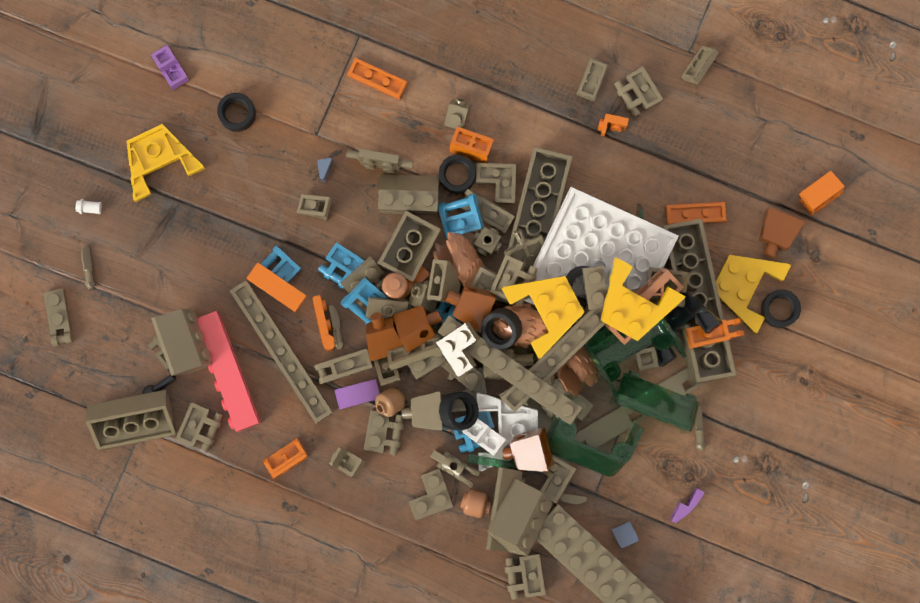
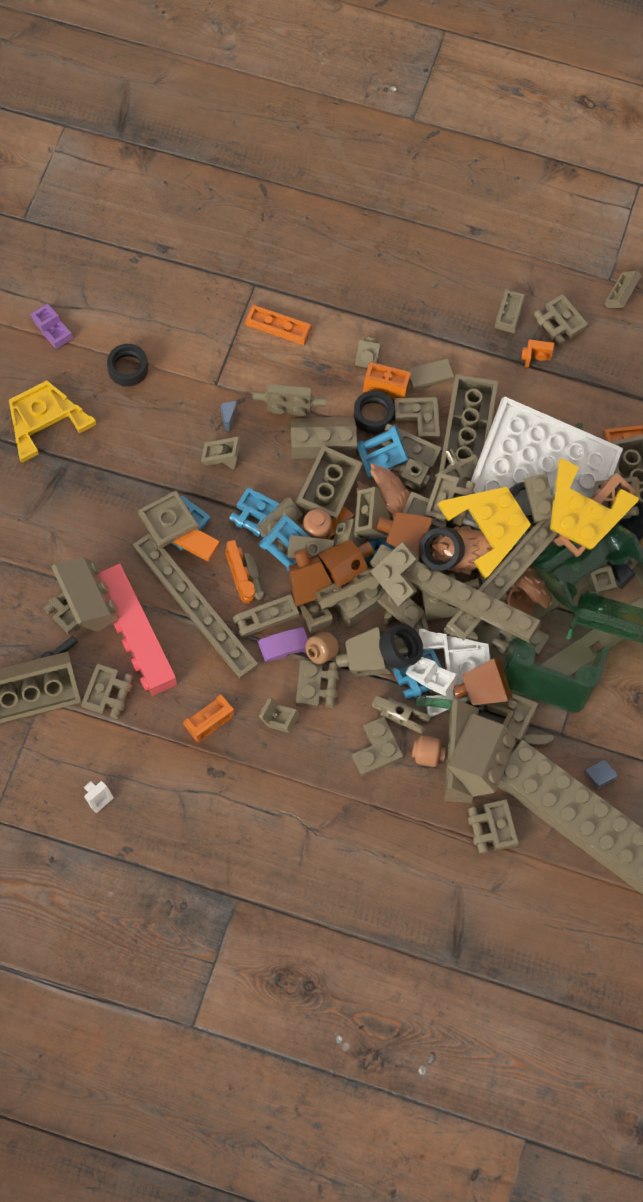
camera: 10 degrees left, 15 degrees down
(184, 523) = (97, 795): none -> white tile
(261, 272) = (167, 519): none -> dark tan tile
(512, 138) = (430, 374): none -> dark tan tile

